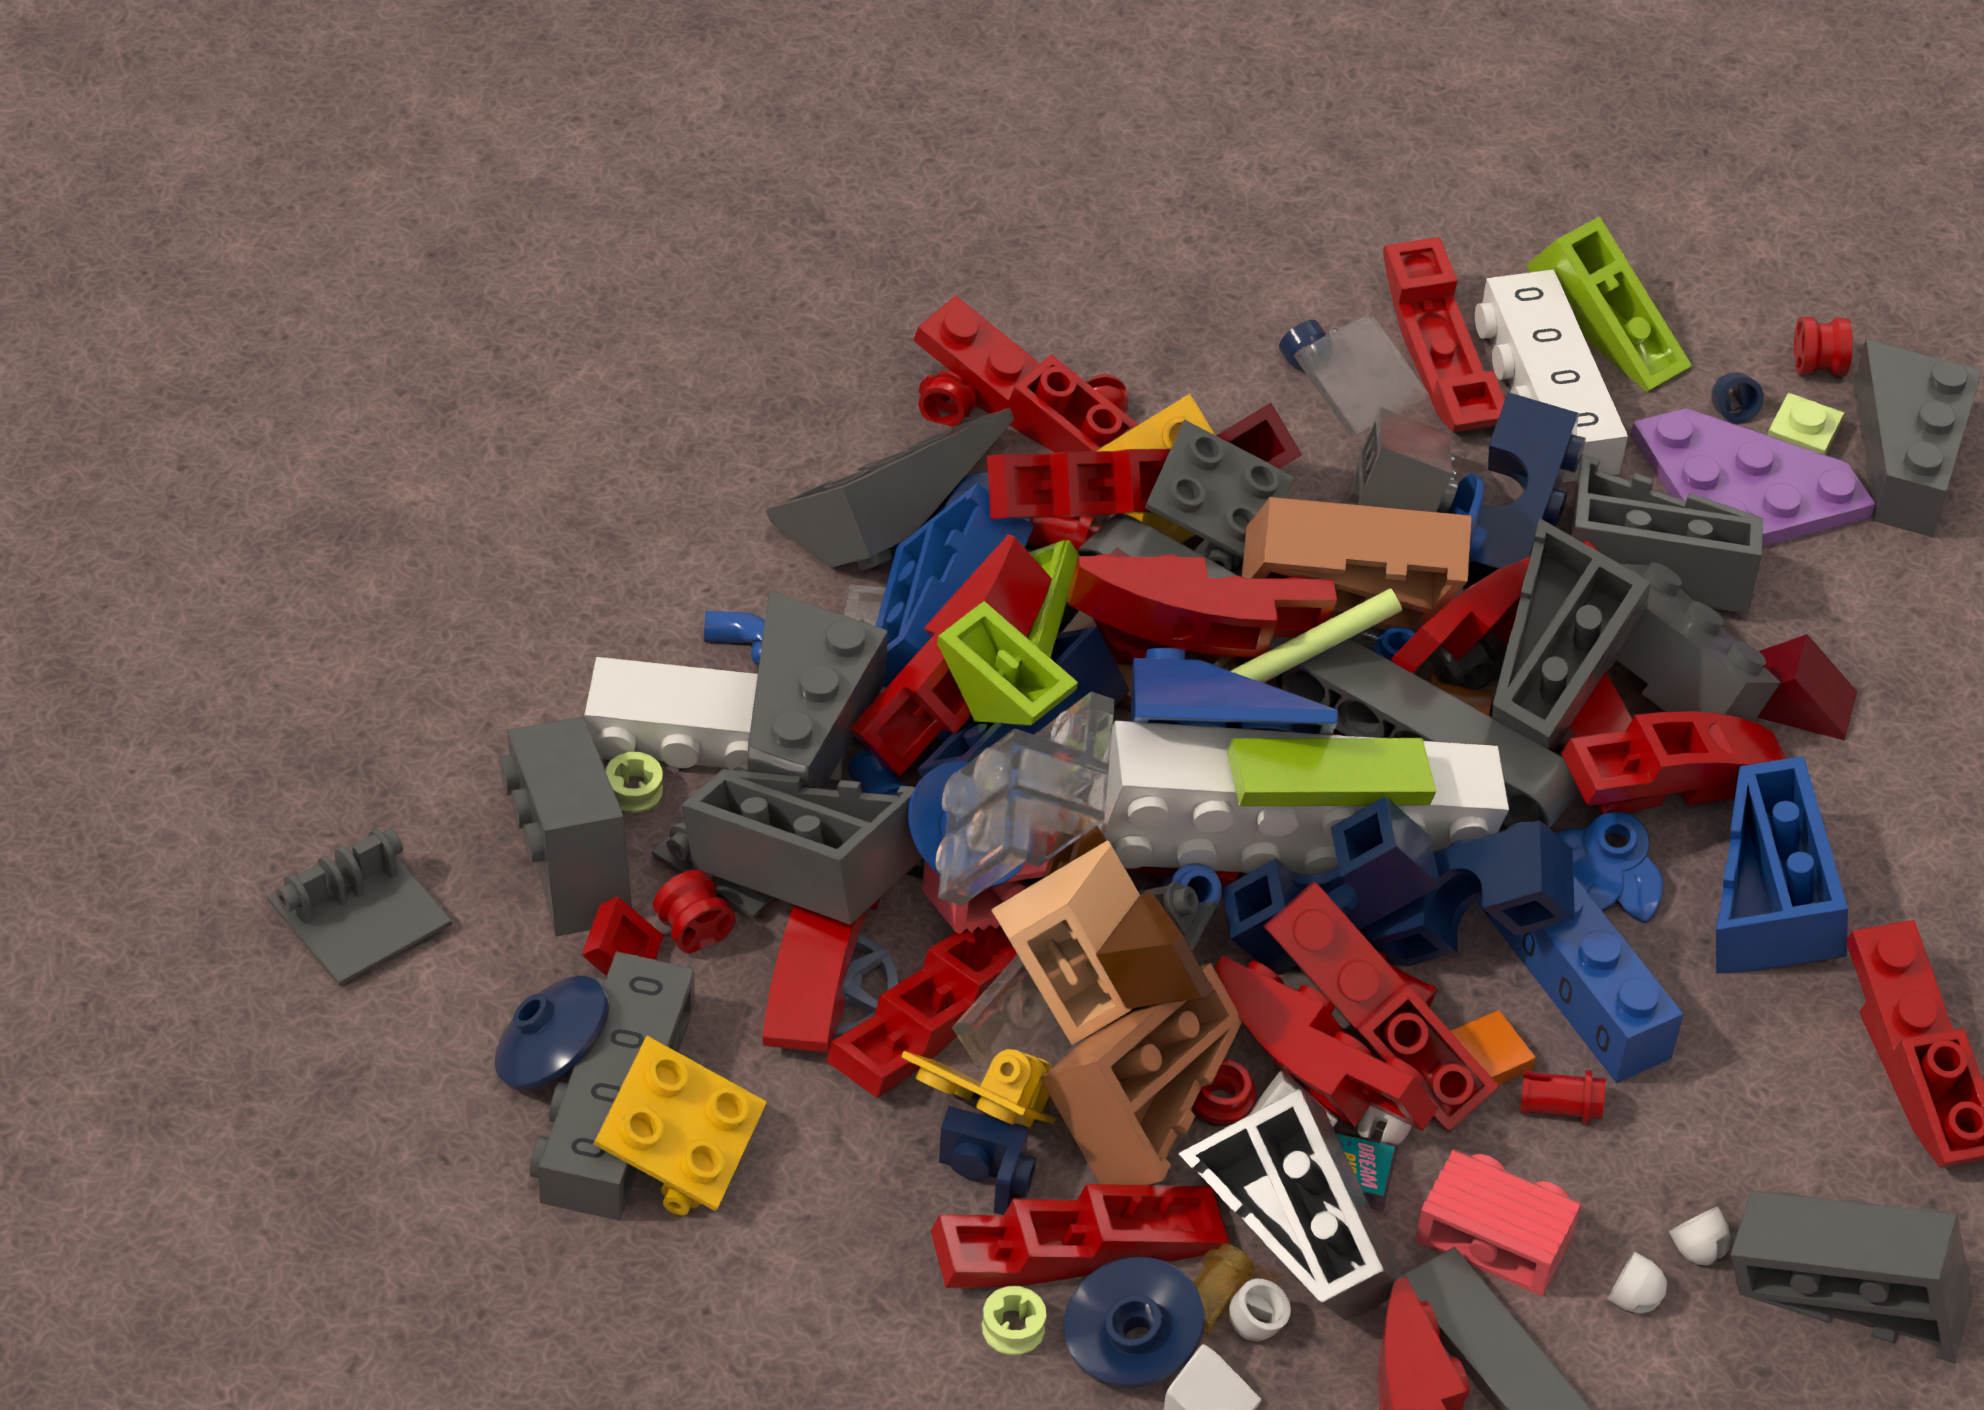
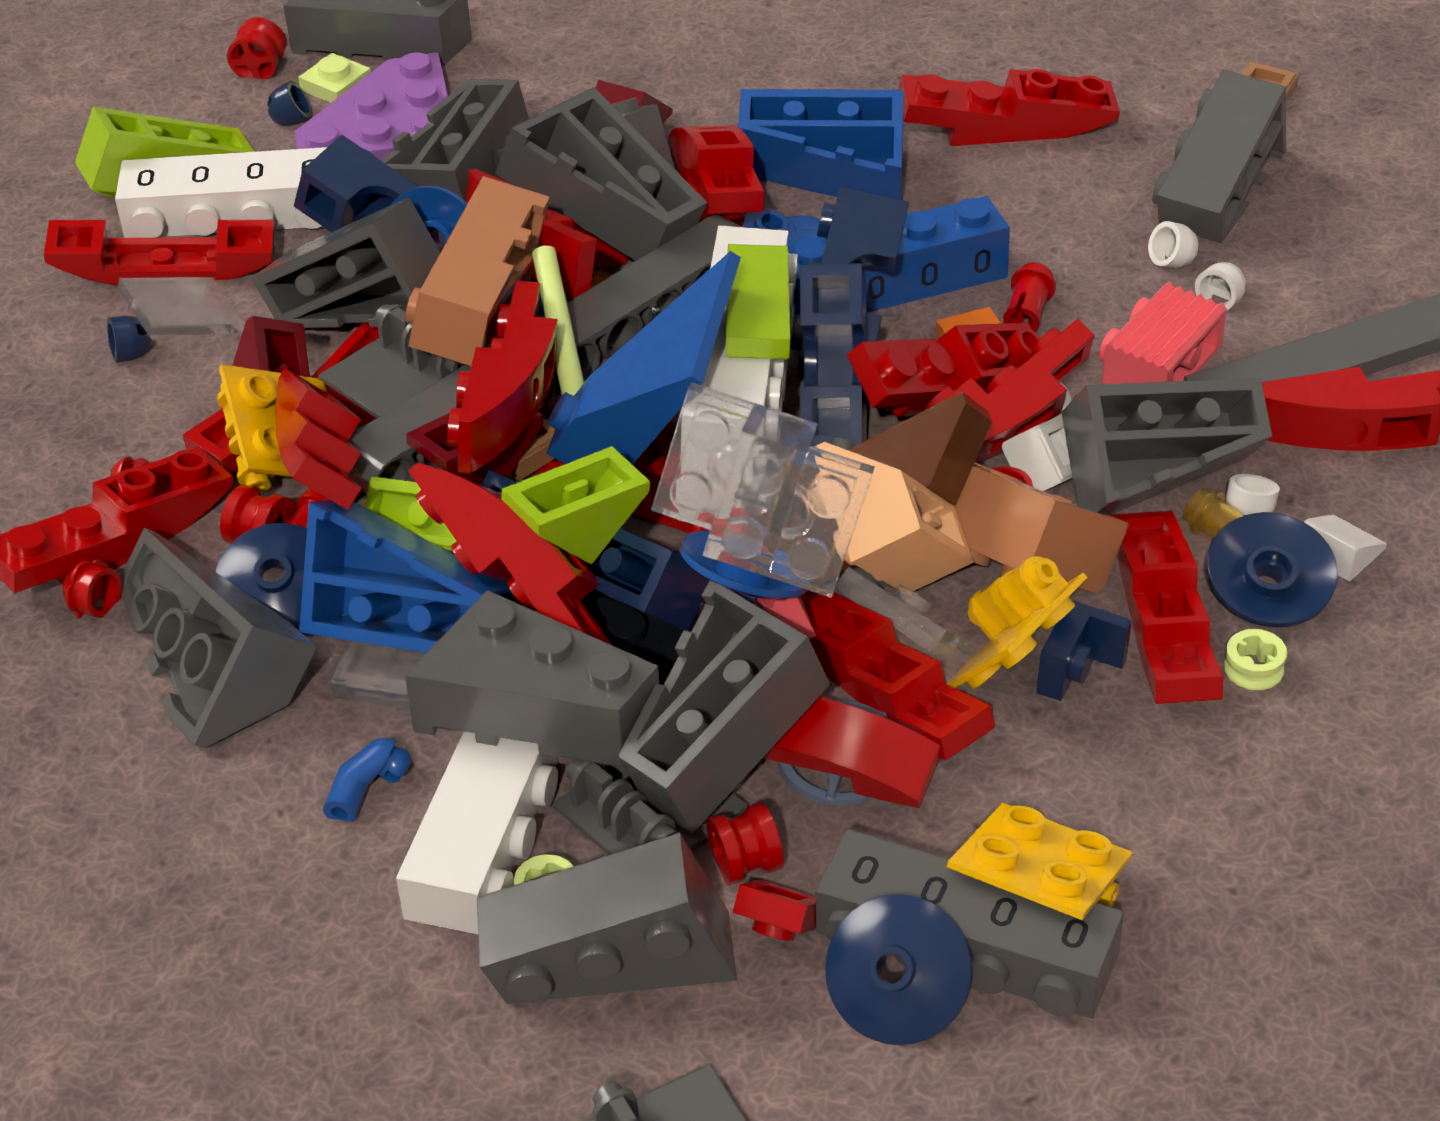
camera: 75 degrees left, 5 degrees down
(1214, 491) = (357, 364): dark grey hinge -> none

